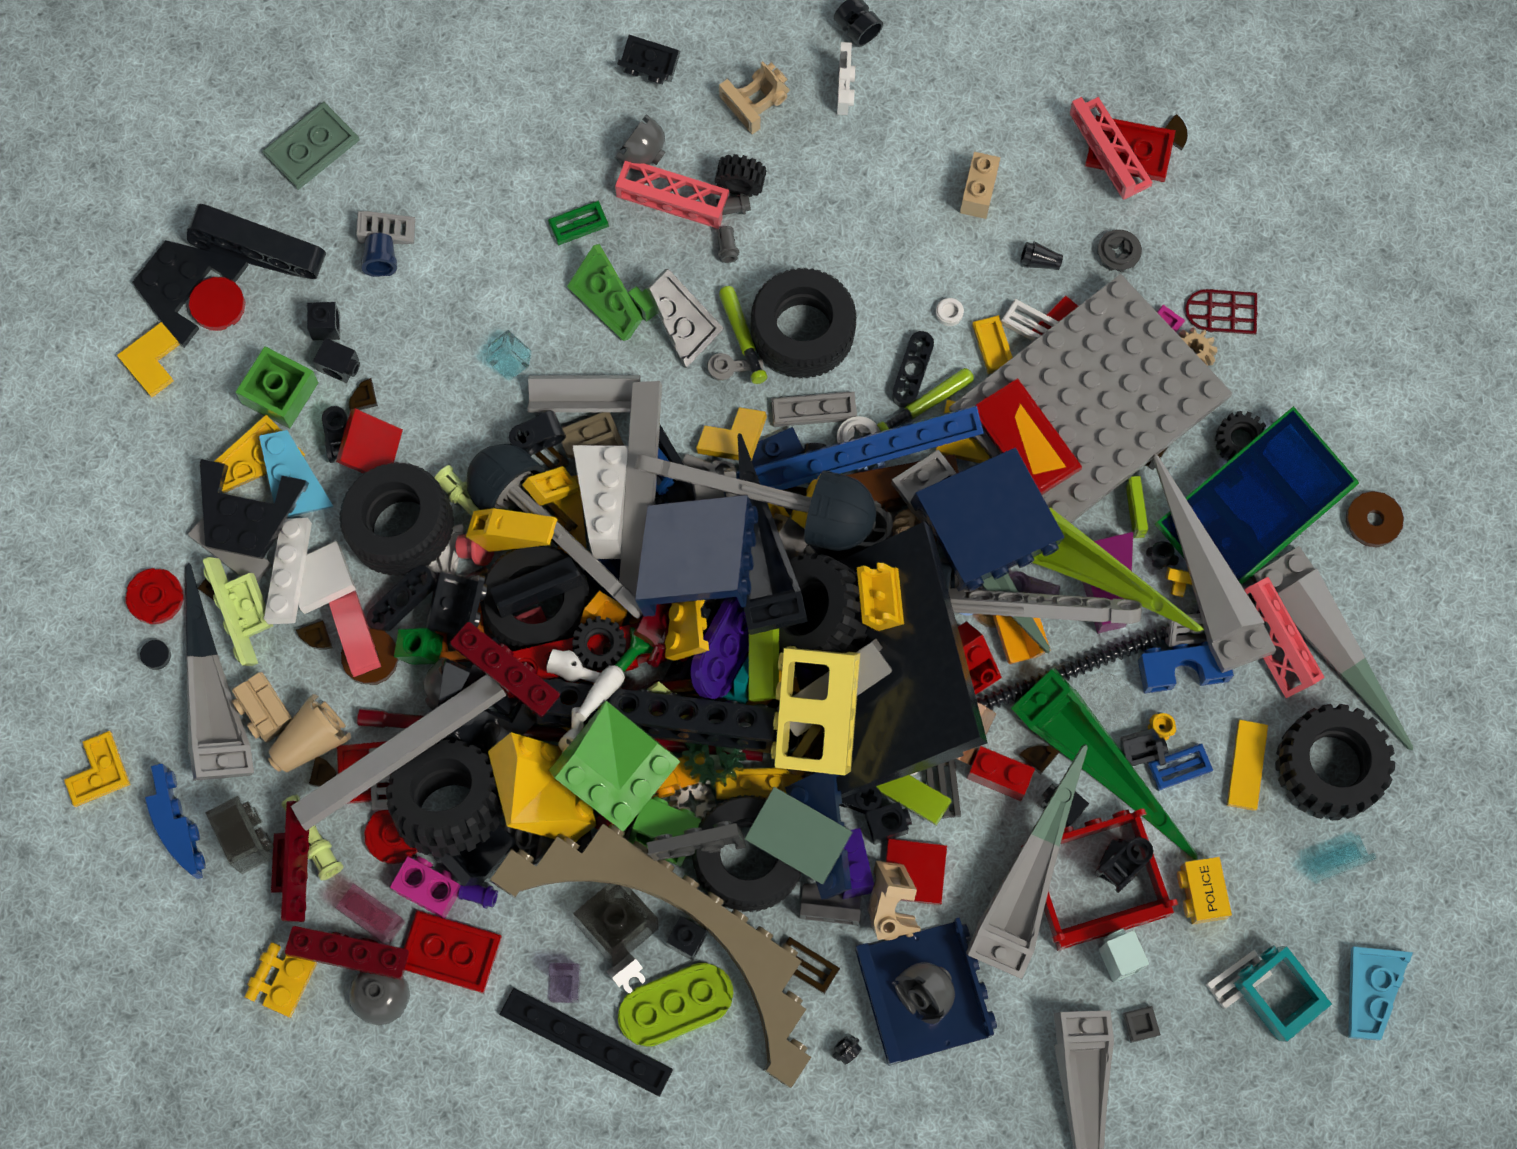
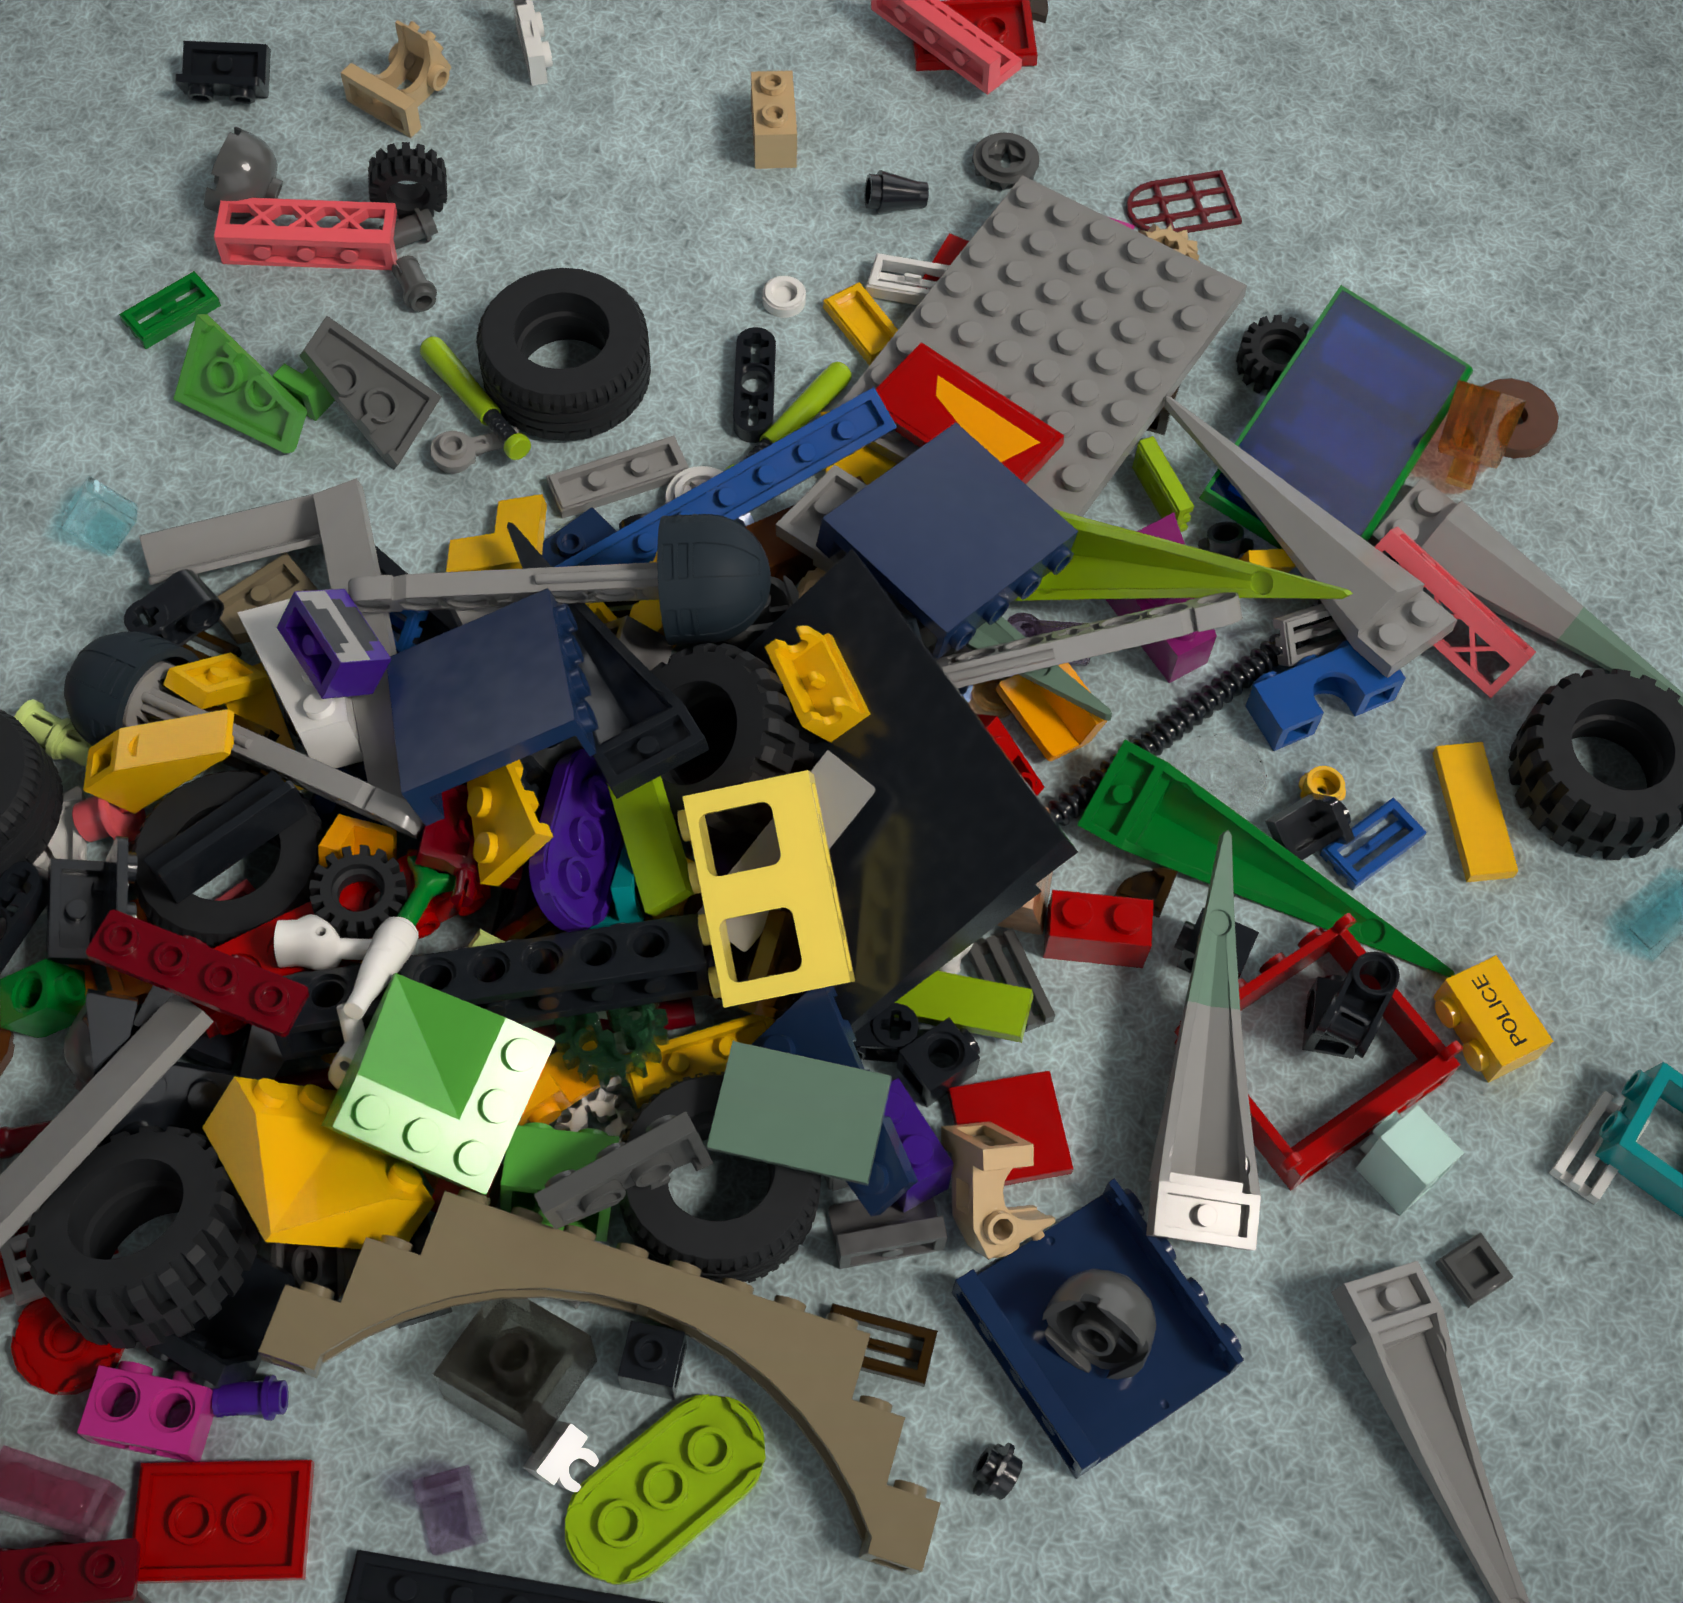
camera: 20 degrees left, 10 degrees down
(621, 491) = (333, 643): none -> dark purple brick
(1343, 526) = (1477, 430): none -> clear orange torso

